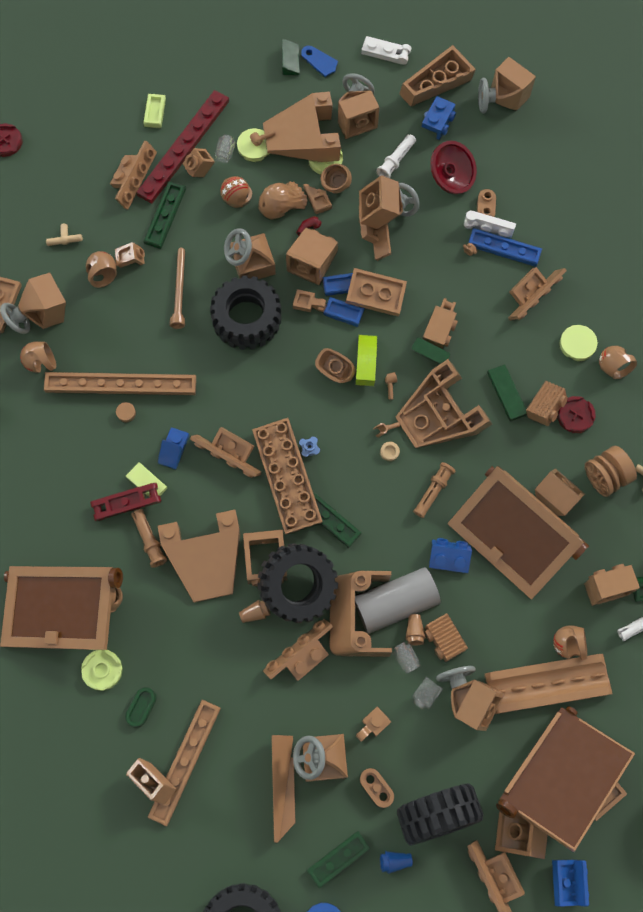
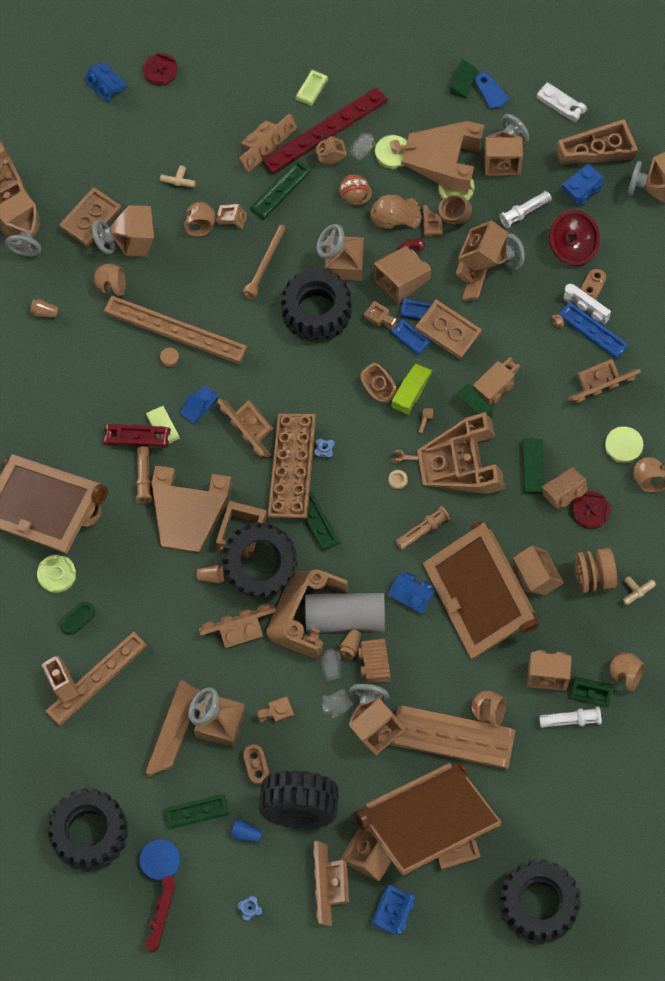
camera: 25 degrees right, 5 degrees down
(380, 641) = (313, 639): none -> medium nougat plate

